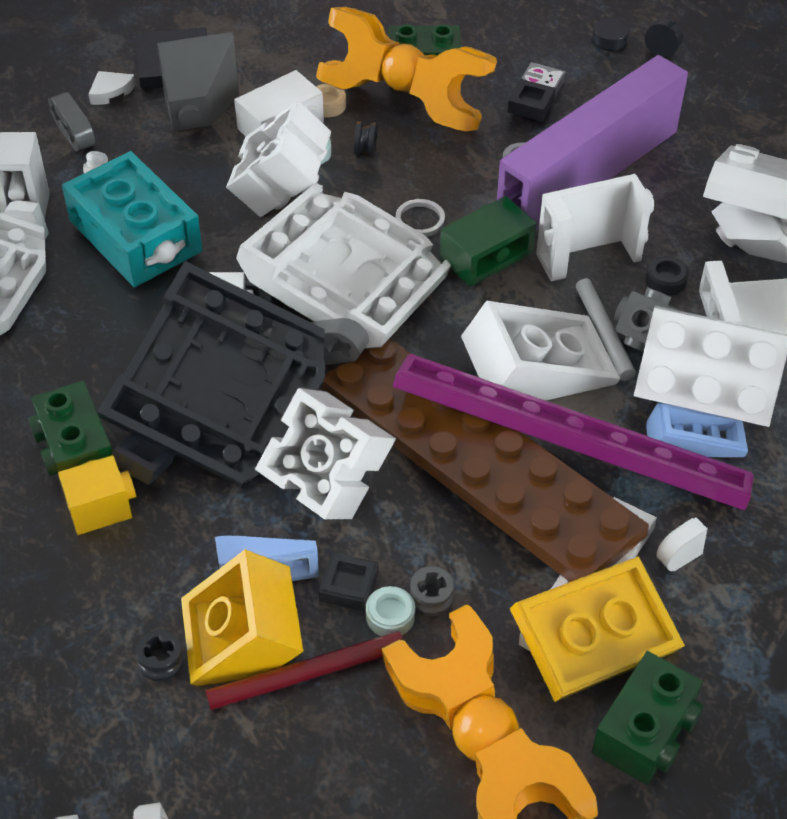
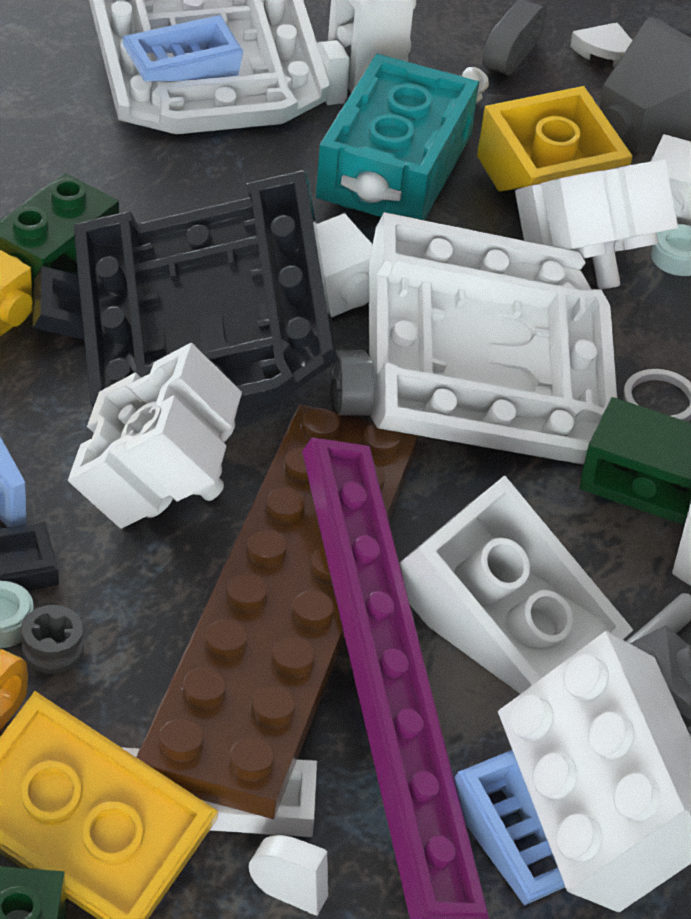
camera: 55 degrees right, 5 degrees down
(202, 151) = (547, 139): none -> yellow slope

